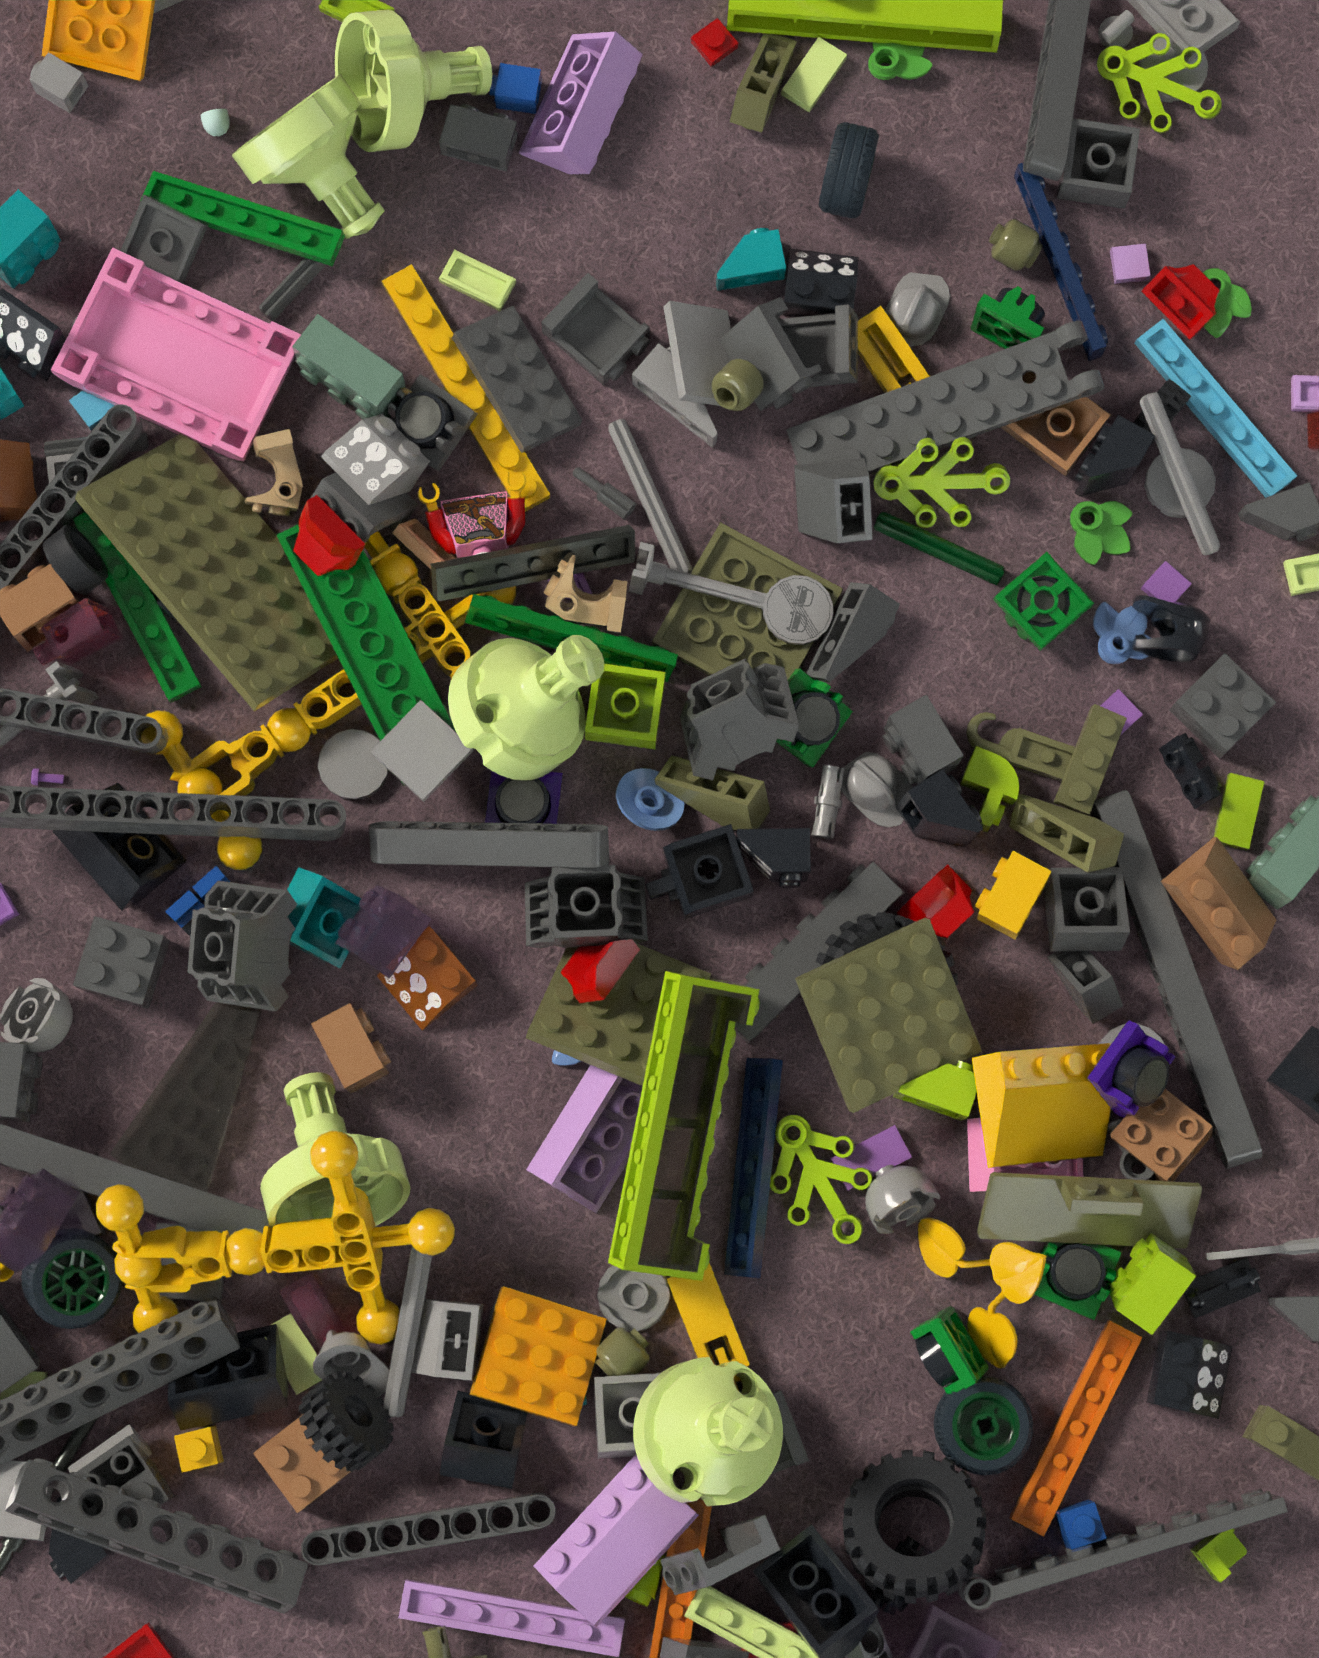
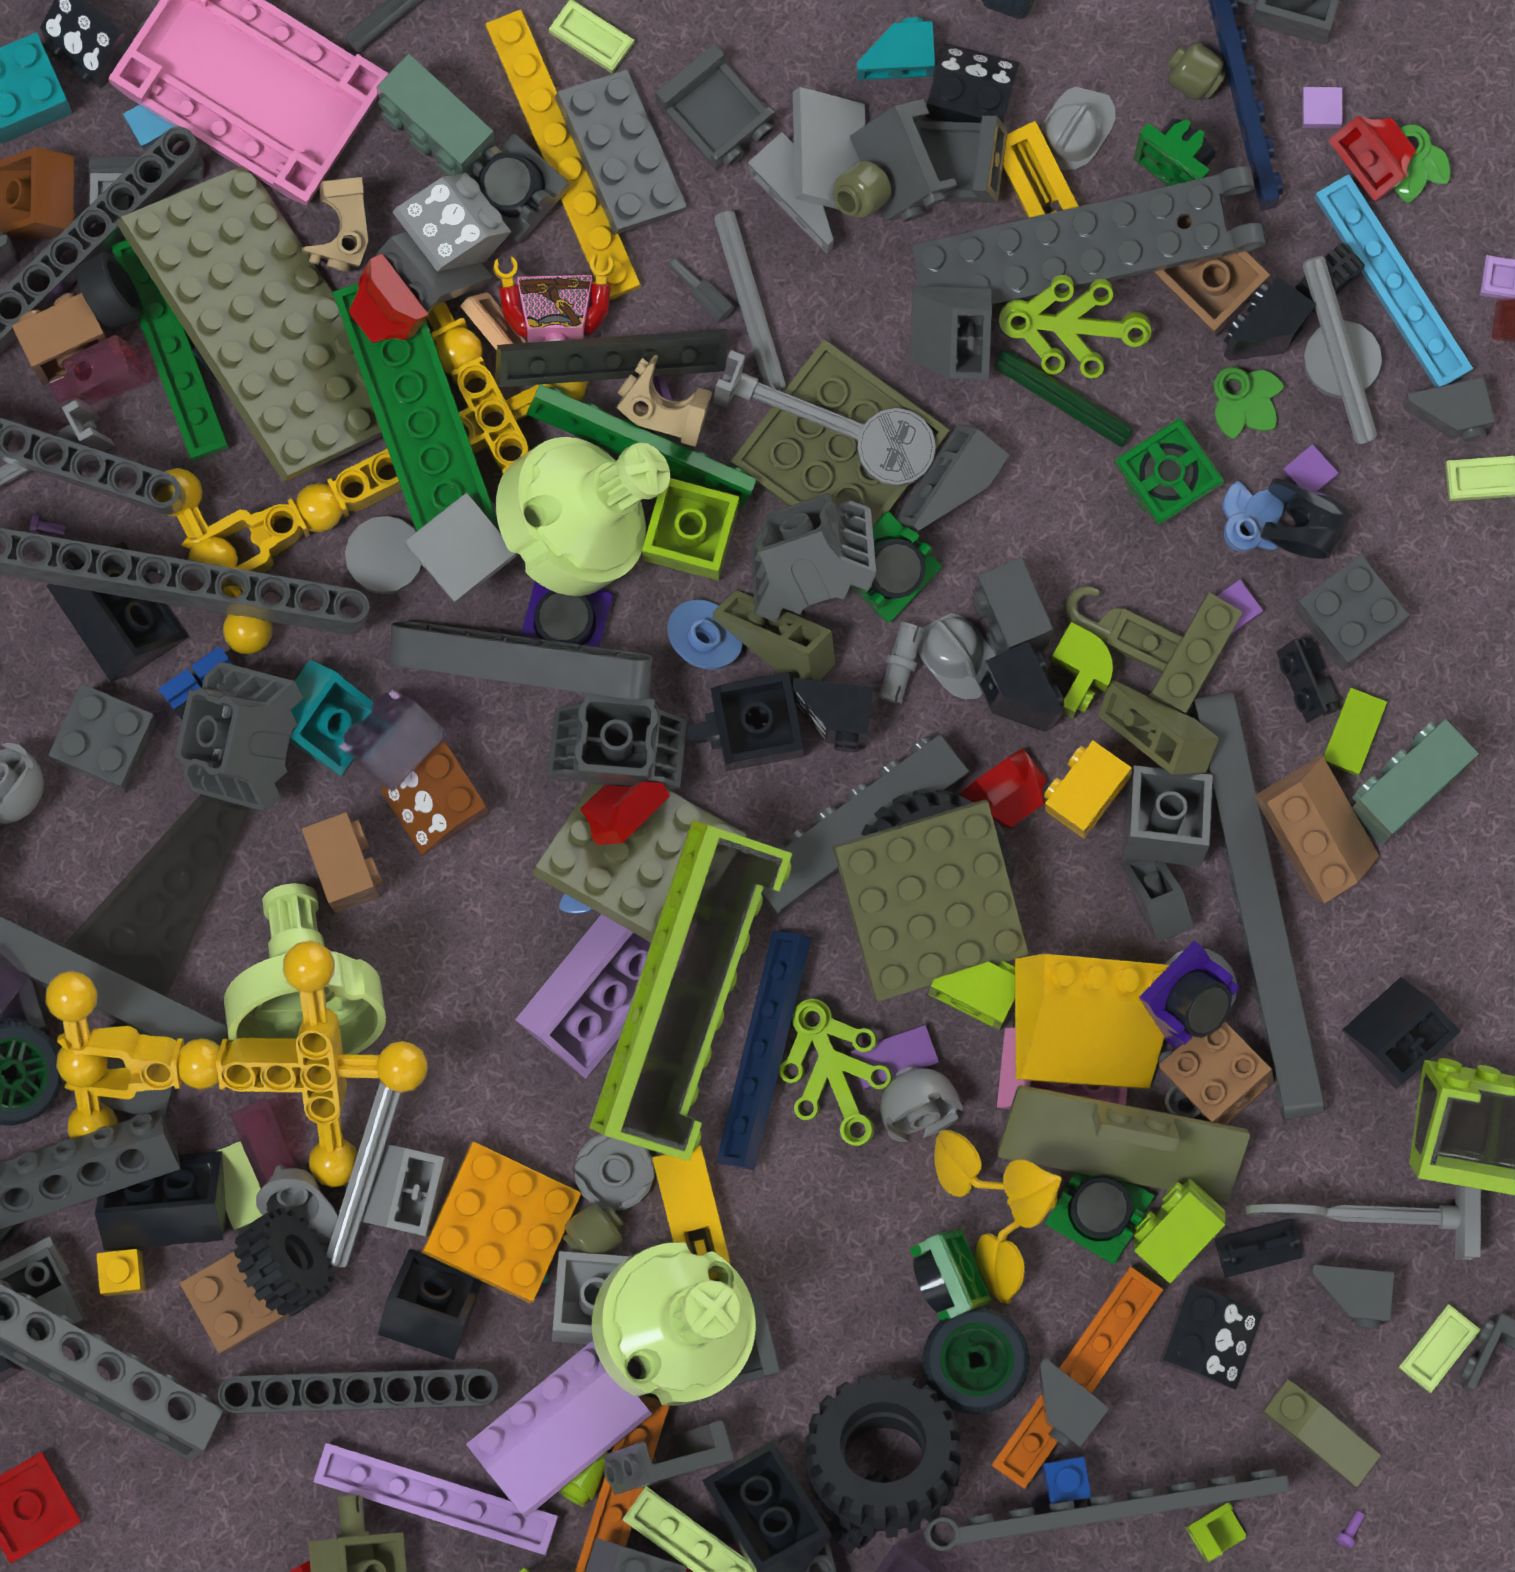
camera: 10 degrees right, 0 degrees up
(1074, 1458) = (1068, 1406): none -> dark grey slope

